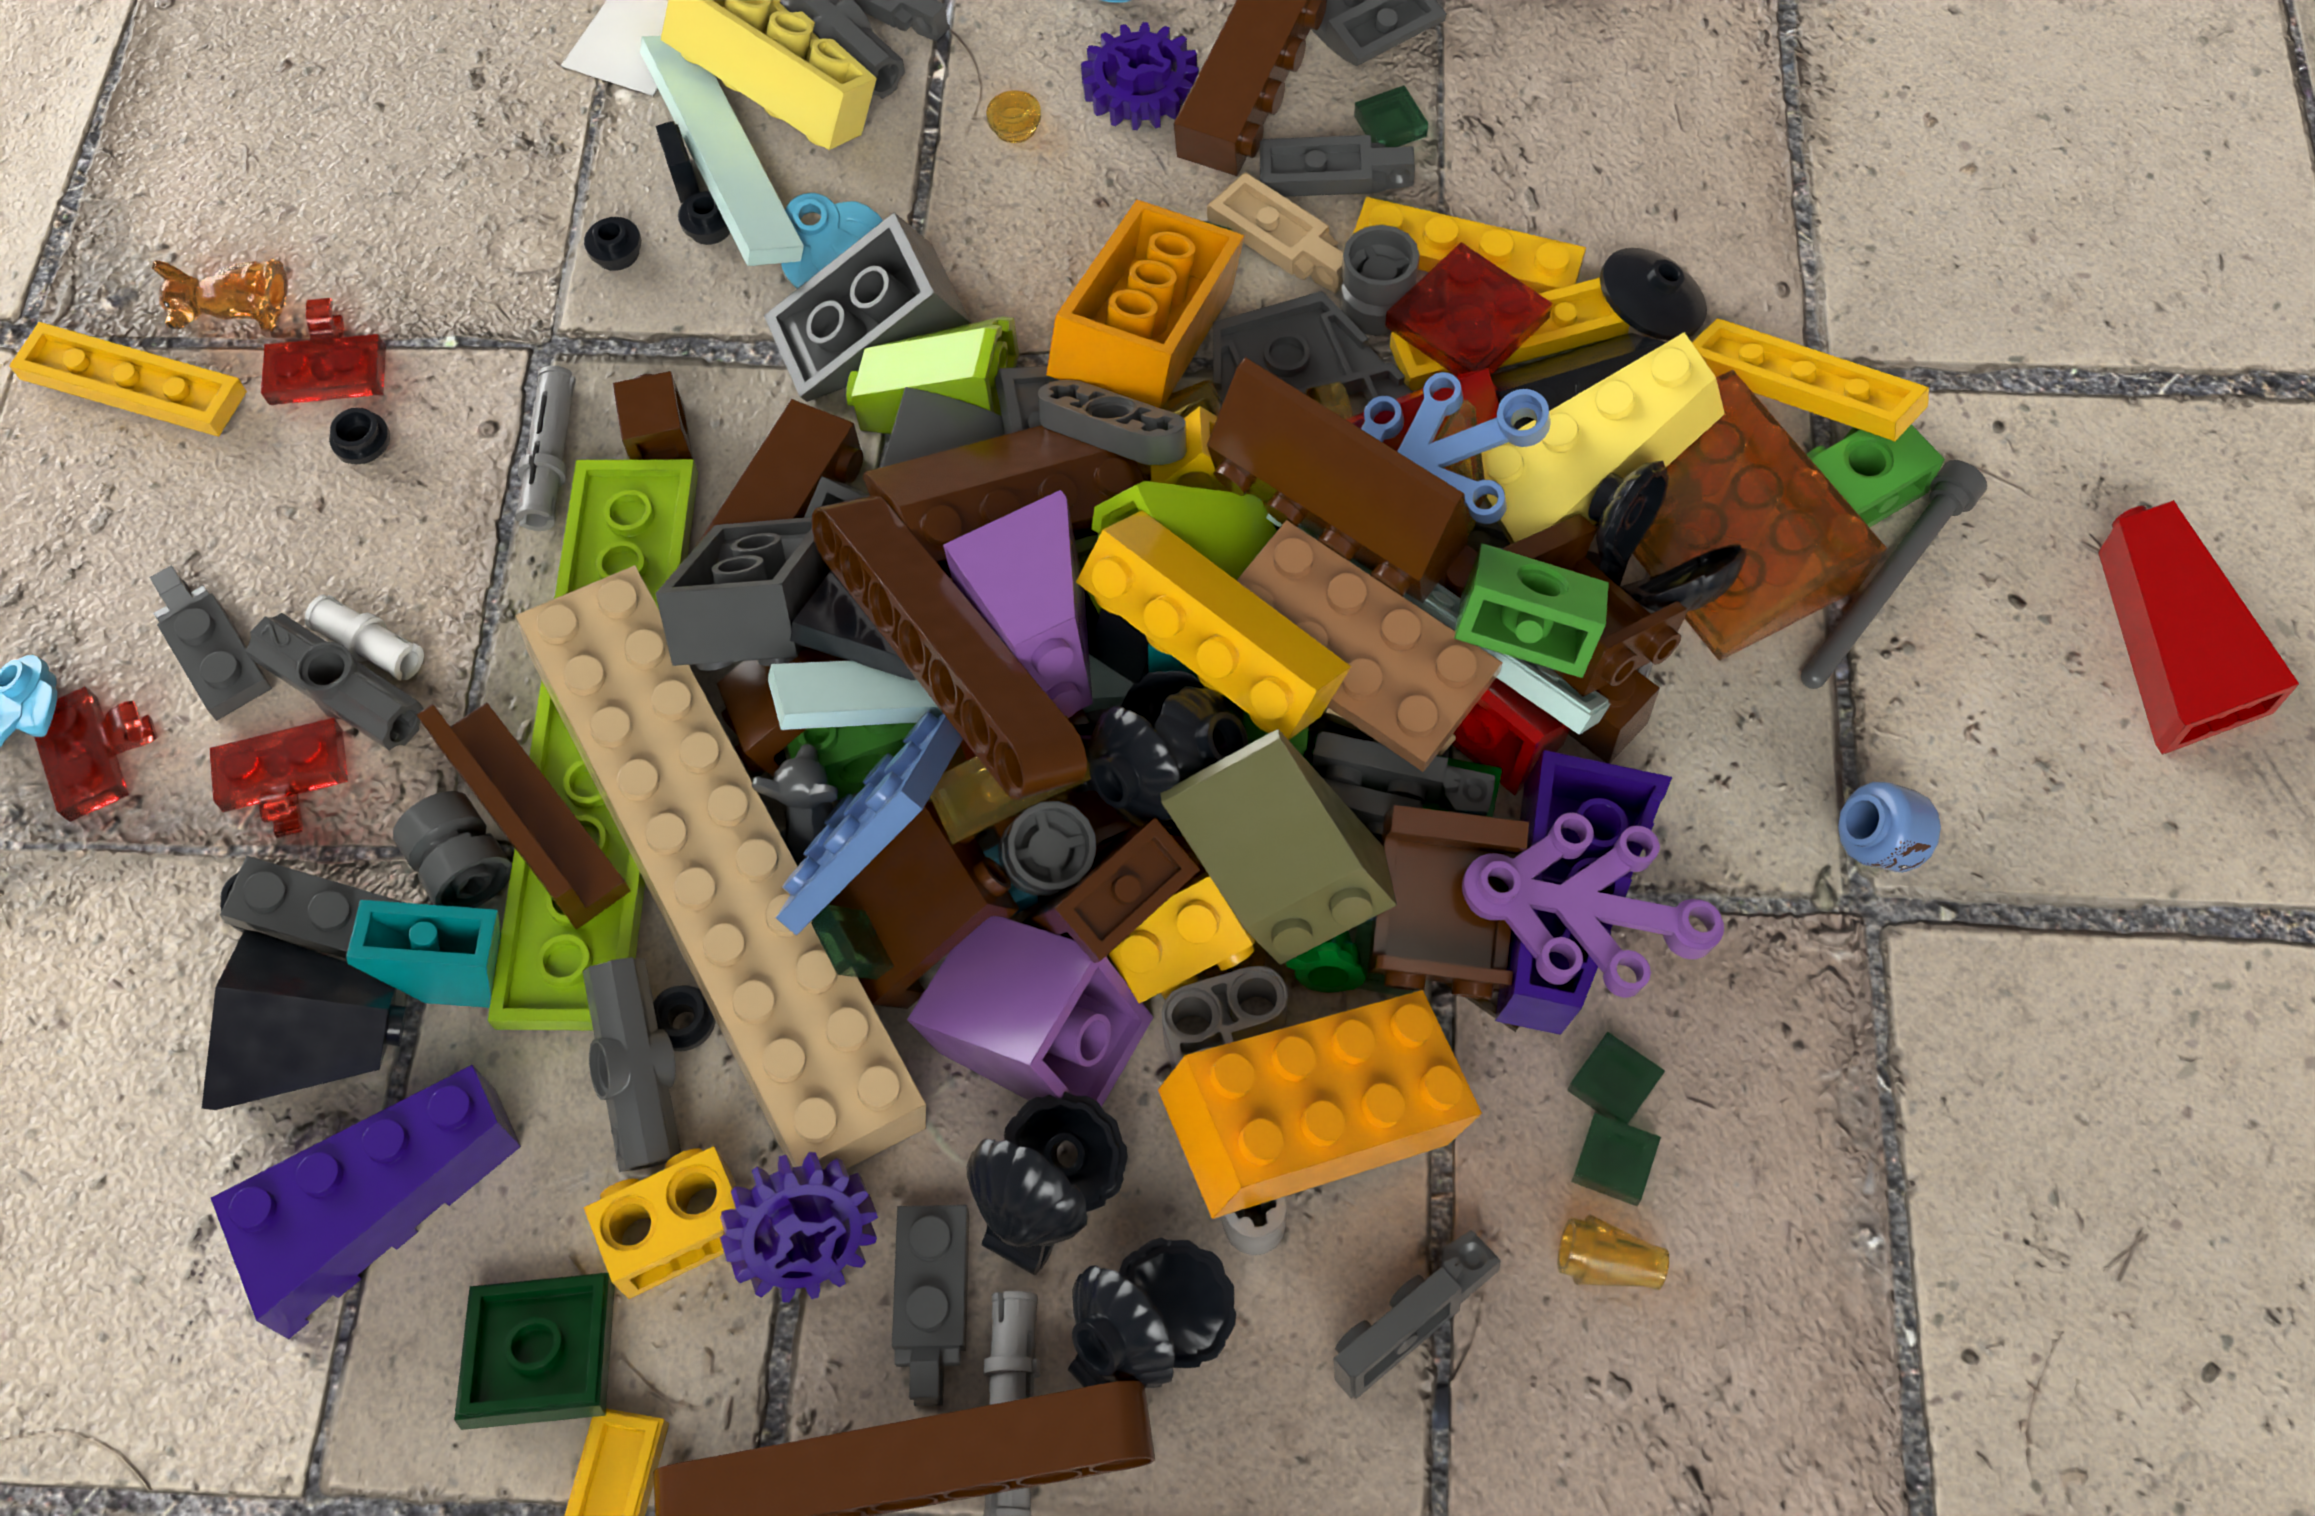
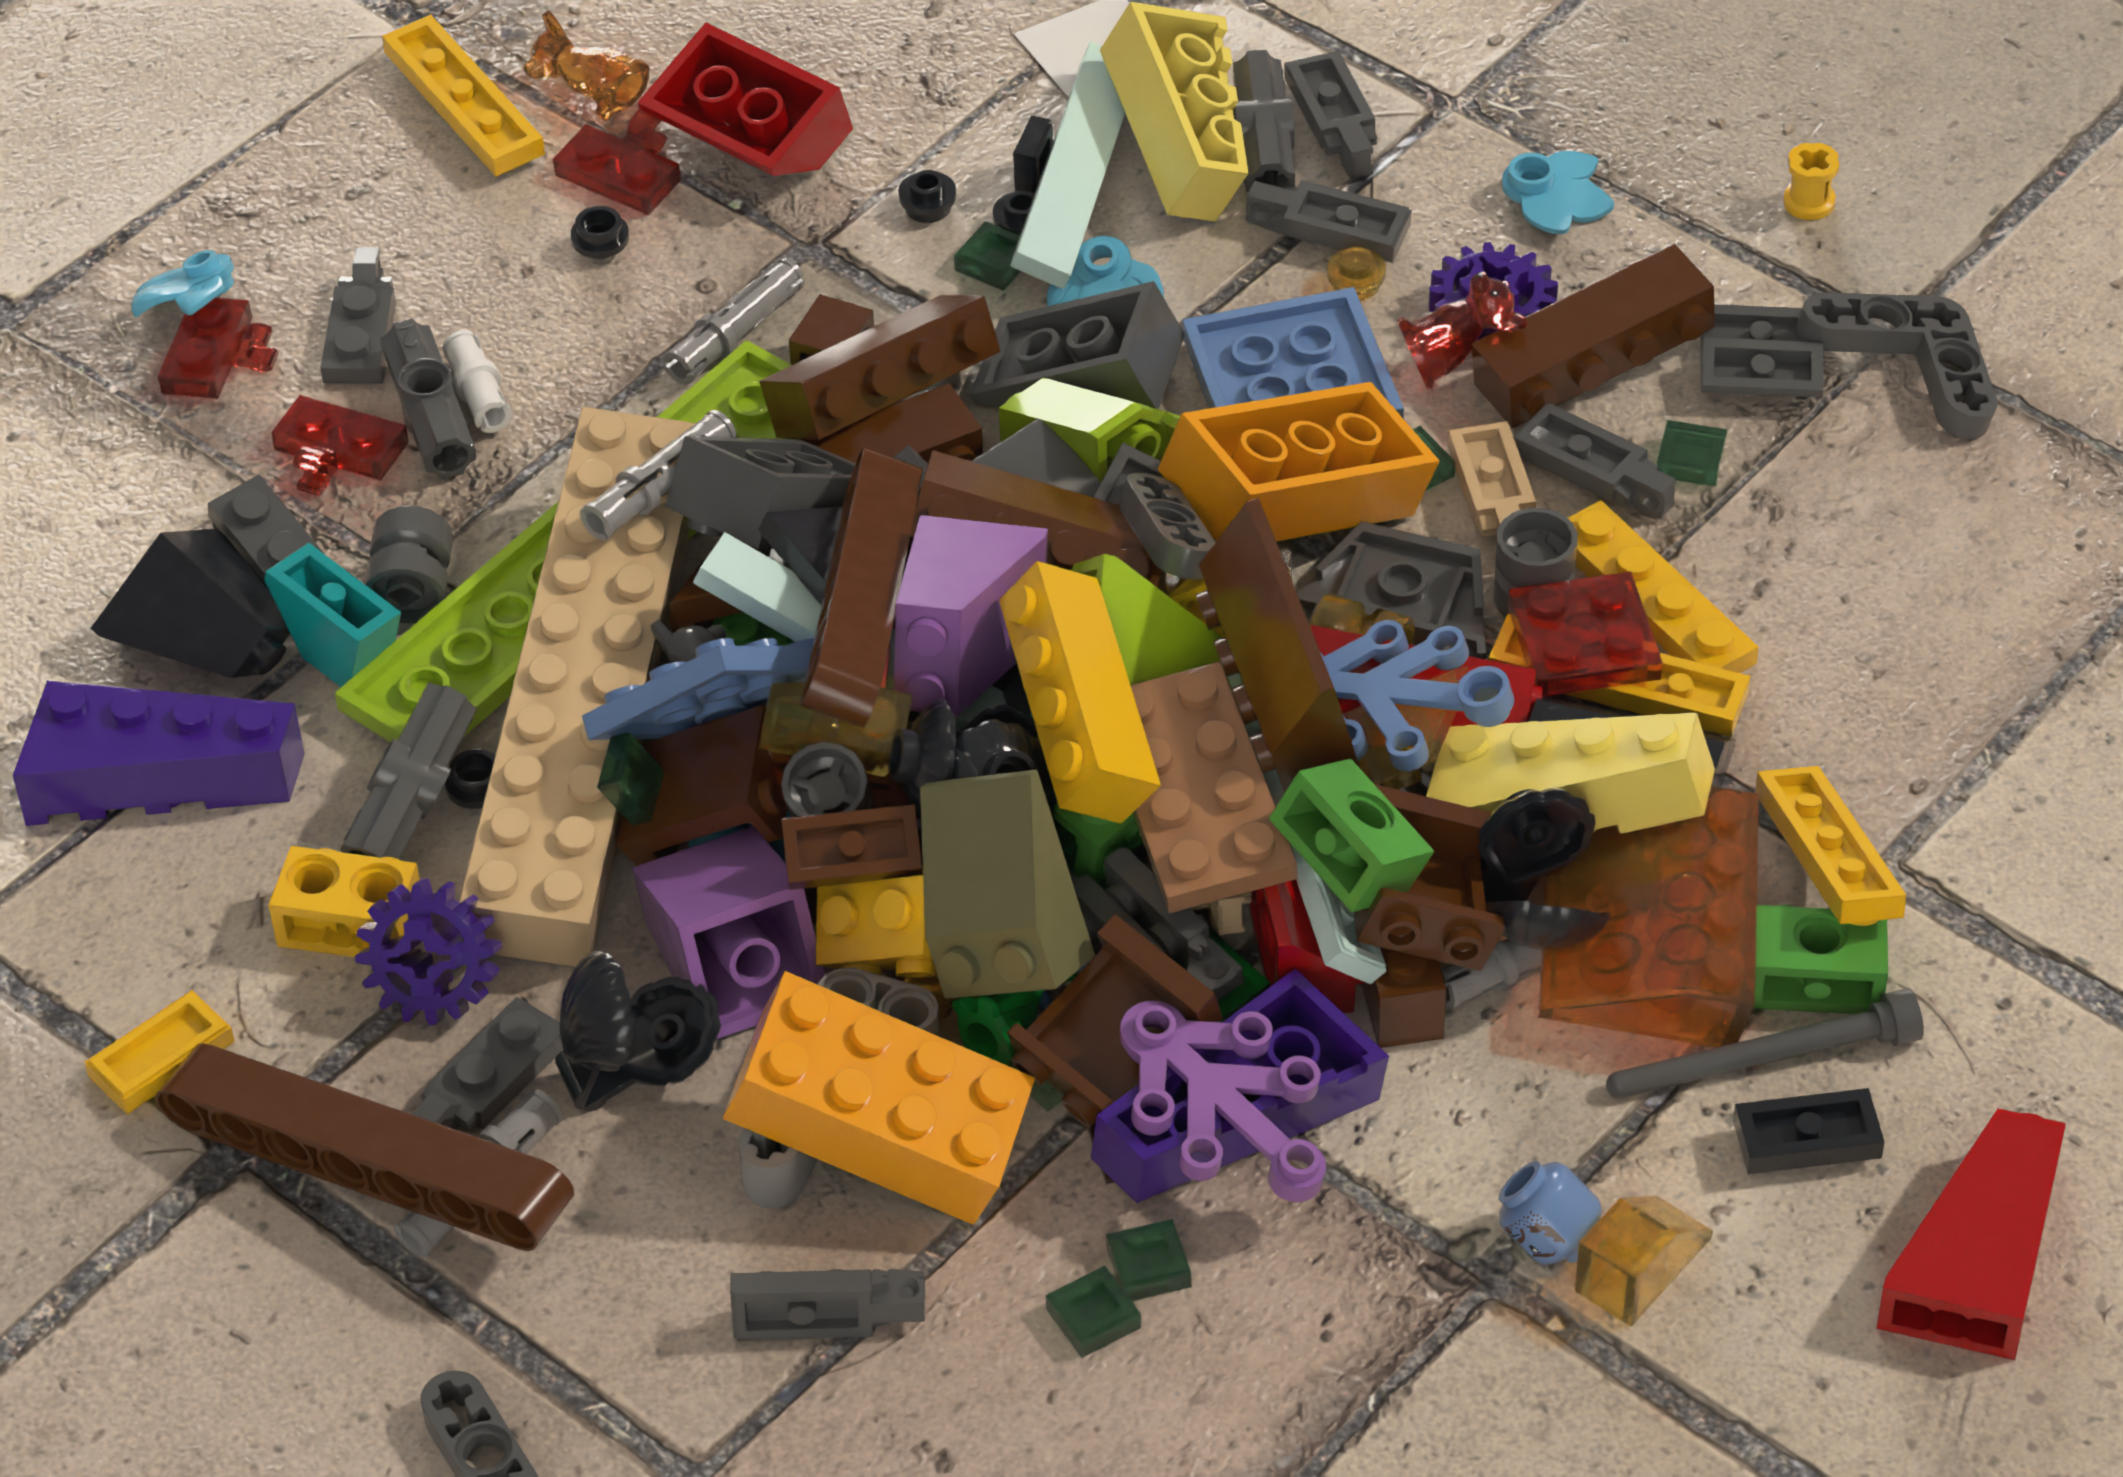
camera: 35 degrees right, 15 degrees down
(402, 247) = (750, 104): none -> red slope
(528, 812) = (481, 563): reddish brown fence -> none
(535, 1351) = (182, 929): dark green tile -> none
(643, 662) = (612, 509): none -> light grey pin
(711, 265) = (989, 256): none -> clear green tile
(721, 420) = (879, 366): none -> reddish brown brick
(955, 81) = (1329, 217): none -> dark grey hinge
(1032, 224) = (1286, 349): none -> medium blue plate
(1144, 124) = (1446, 335): none -> clear red animal
(1154, 1315) = (645, 1182): black animal -> none
(1609, 1256) = (1015, 1360): clear yellow cone -> none
(1652, 293) = (1780, 715): black dish -> none
(1976, 814) = (1636, 1254): none -> clear yellow slope
(1985, 625) = (1808, 1131): none -> black plate

